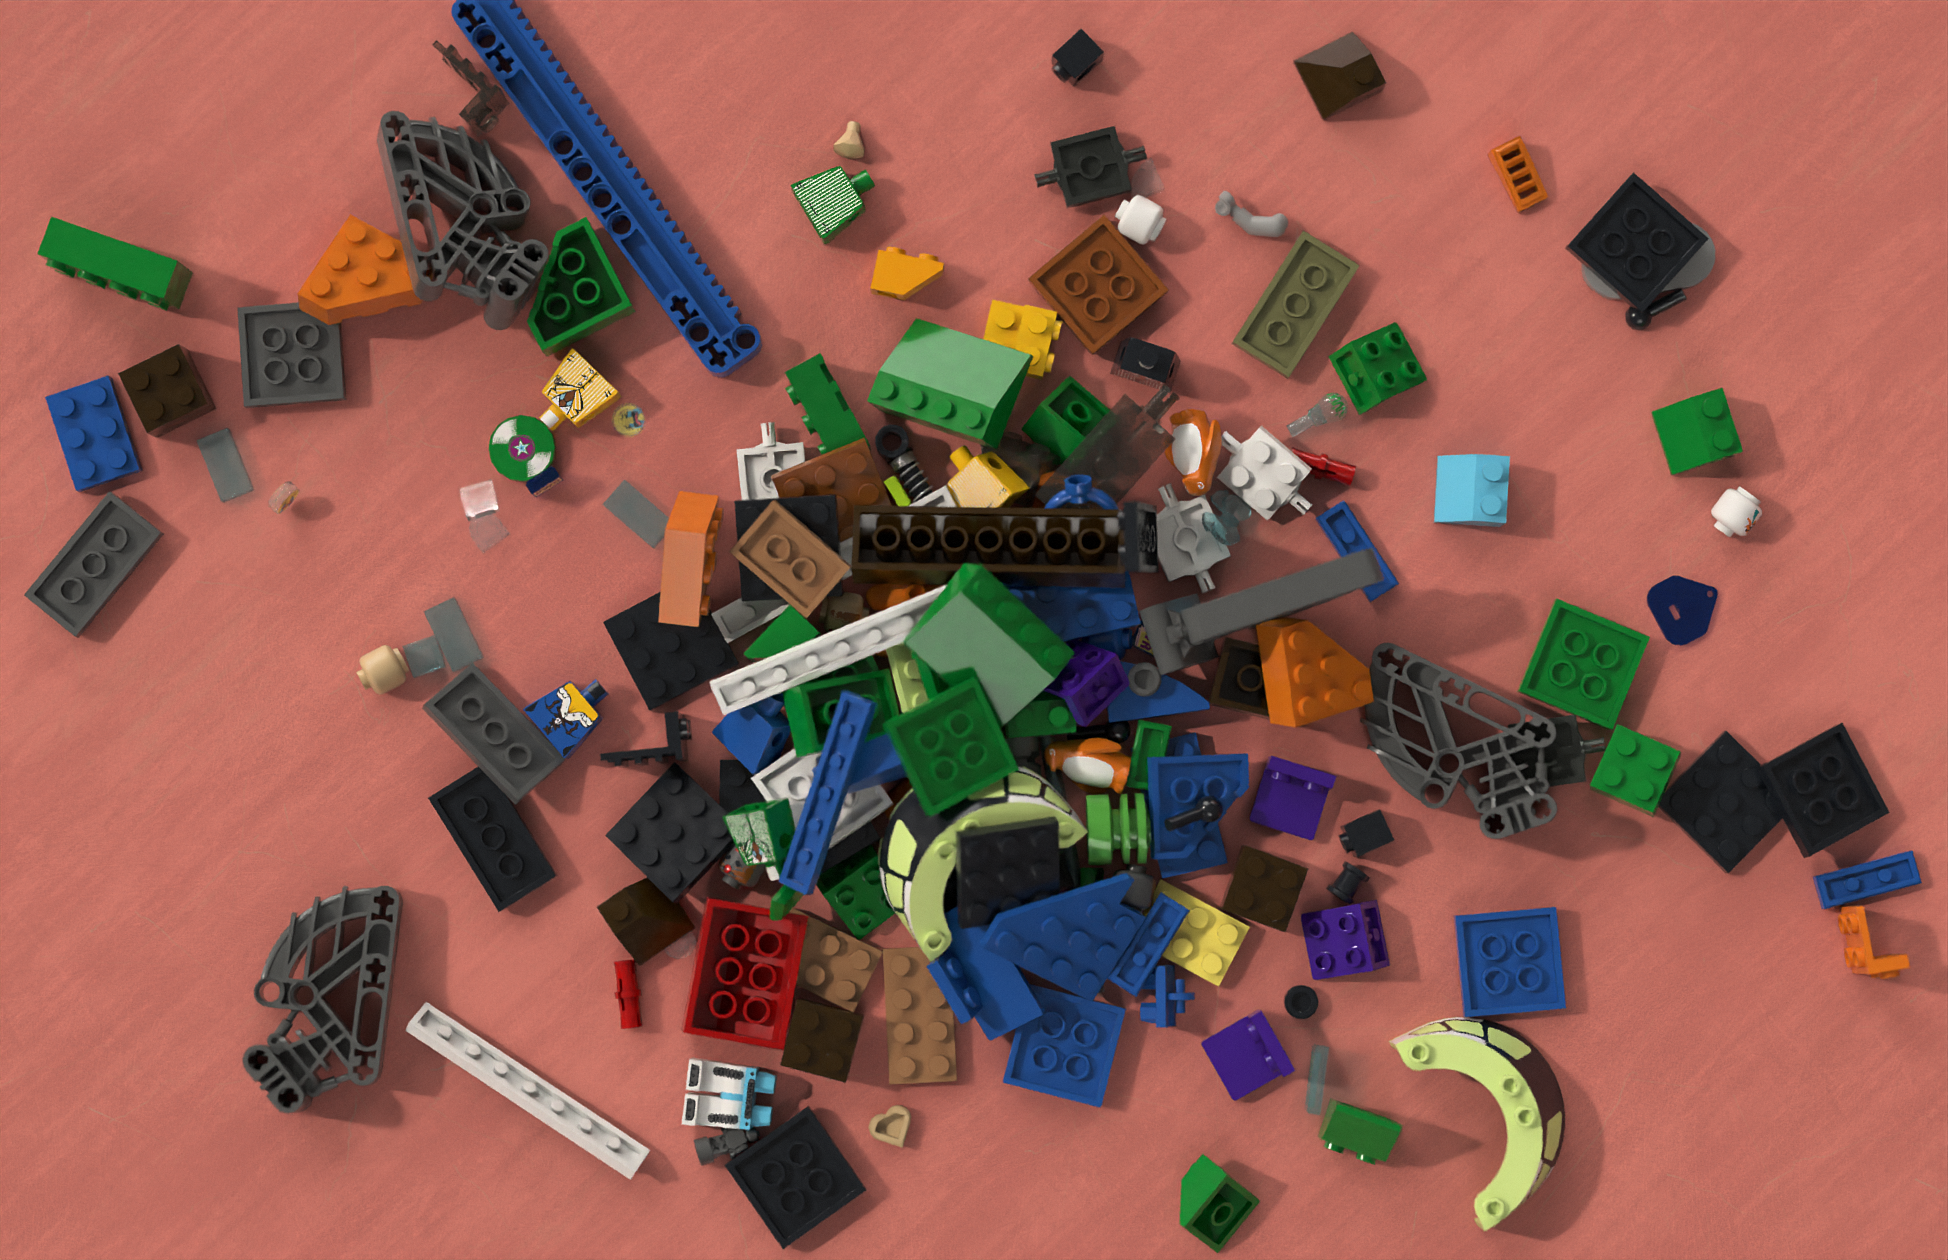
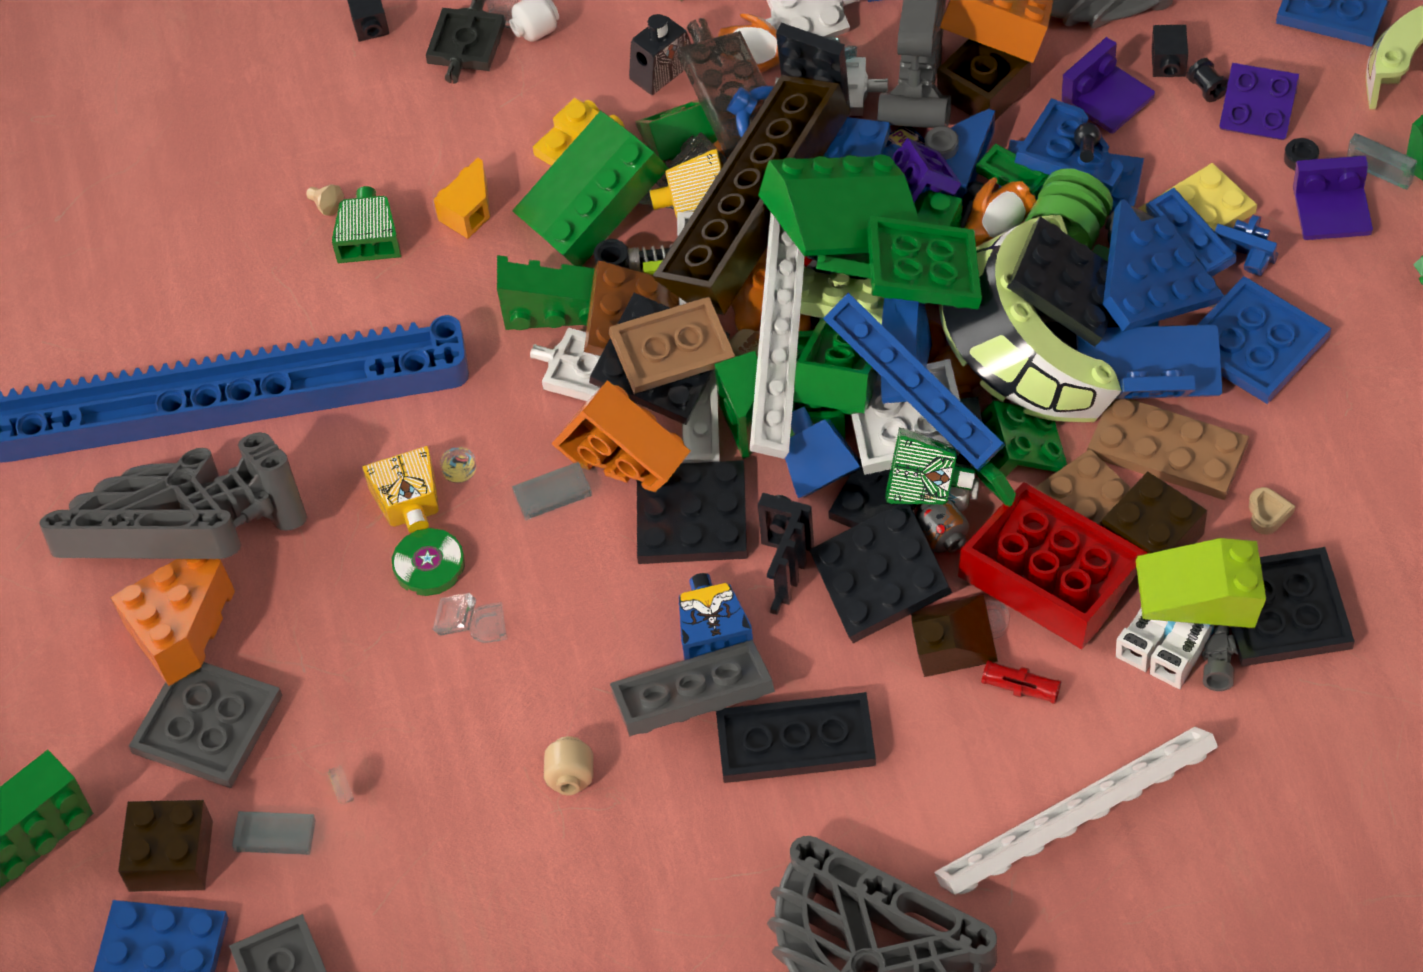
camera: 60 degrees left, 30 degrees down
(424, 656) = (579, 724): clear light blue tile -> none
(453, 634) = (571, 694): clear light blue tile -> none
(482, 111) = (83, 441): clear smoke plate -> none
(544, 481) = (471, 549): clear blue tile -> none
(576, 291) = (319, 441): green brick -> none
(763, 1108) = (1203, 583): none -> lime slope
(1098, 285) = (570, 65): dark orange plate -> none
(1263, 888) = (1181, 136): dark brown brick -> none

